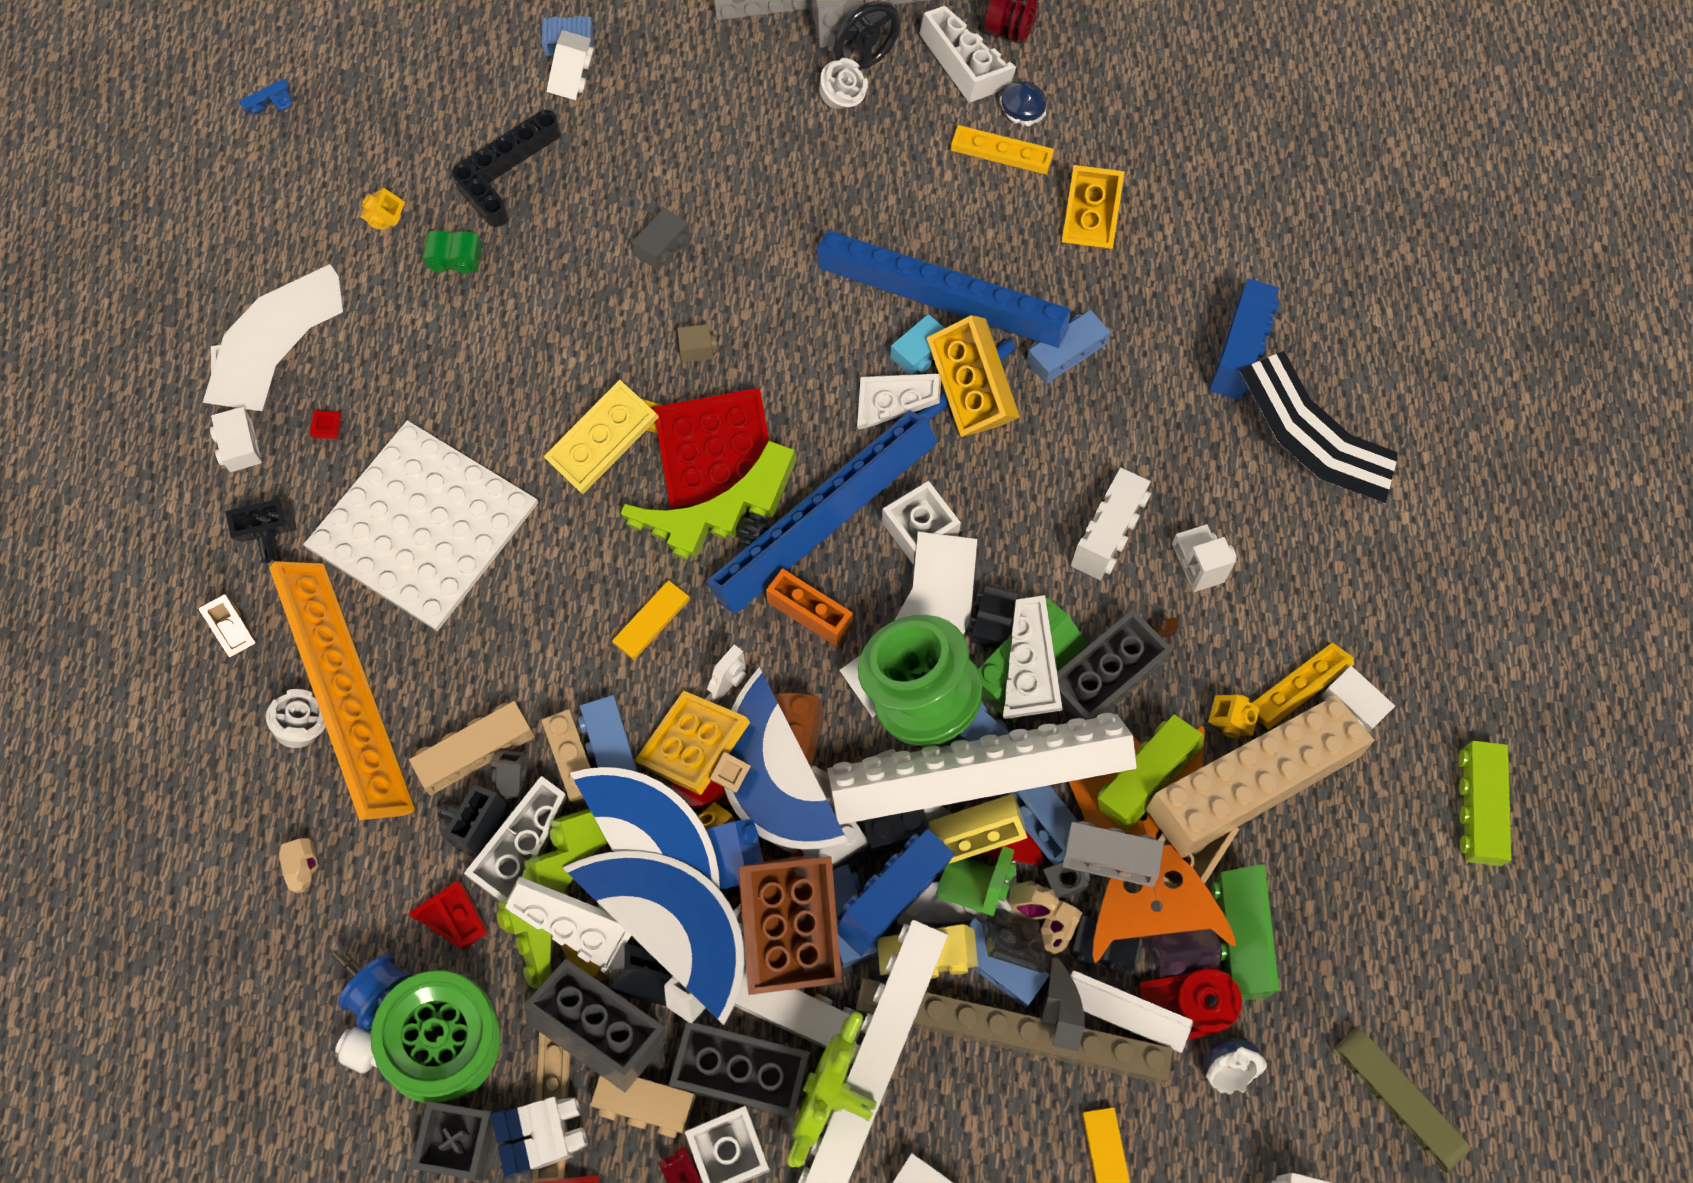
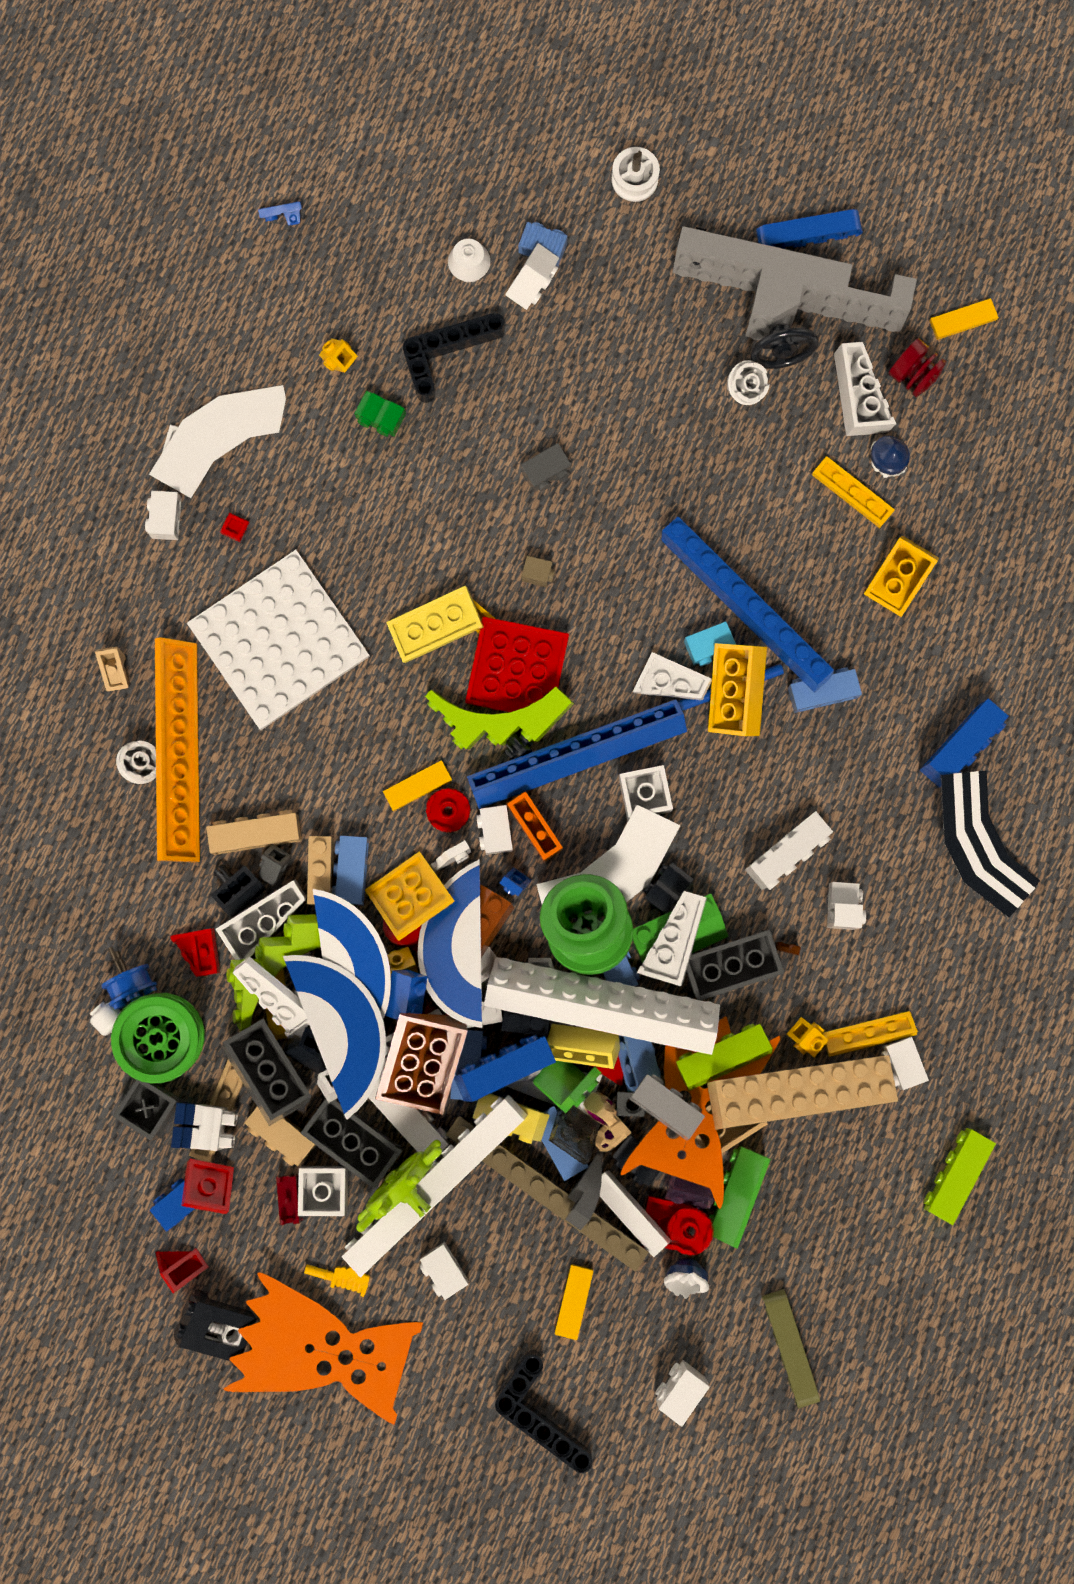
camera: 25 degrees right, 15 degrees up
(262, 523) = (161, 596): black brick -> none
(298, 863) = (106, 870): tan rock -> none
(493, 75) = (469, 260): none -> white cone
(699, 618) = (448, 798): none -> red plate
(729, 772) = (424, 934): tan plate -> none
(765, 631) = (495, 830): none -> white brick
(812, 679) = (515, 882): none -> blue hinge

